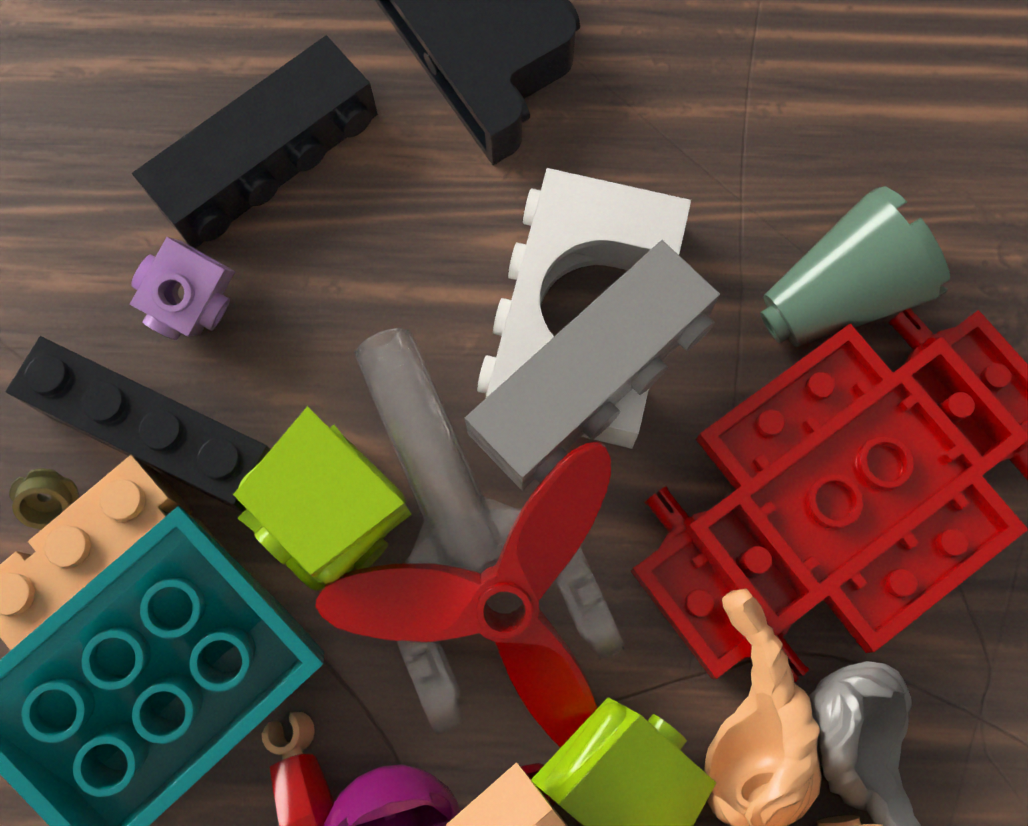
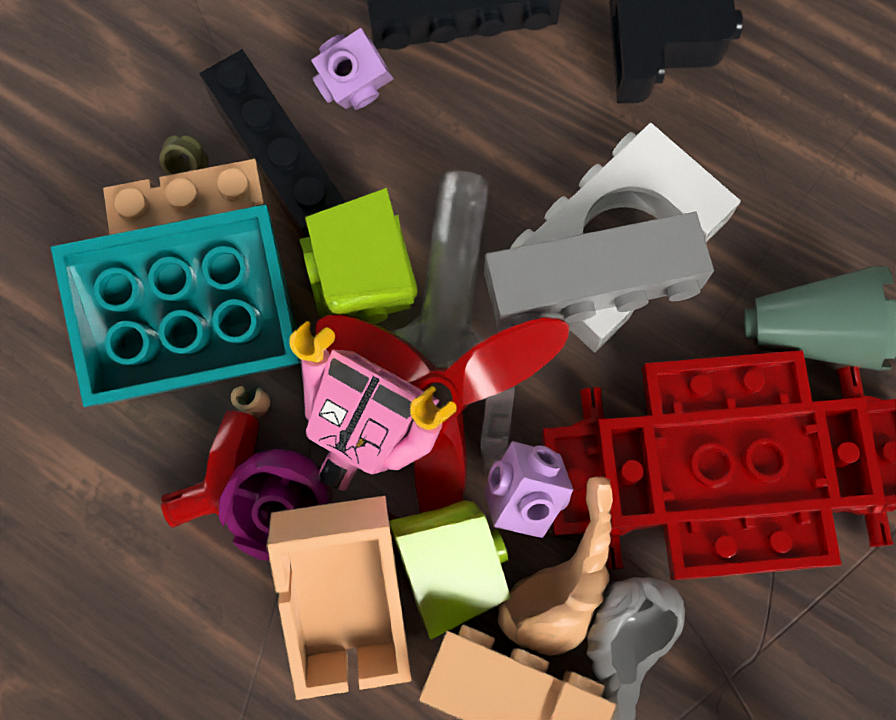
camera: 30 degrees right, 0 degrees up
(432, 679) = (362, 411): none -> bright pink torso
(662, 651) = (527, 489): none -> lavender brick

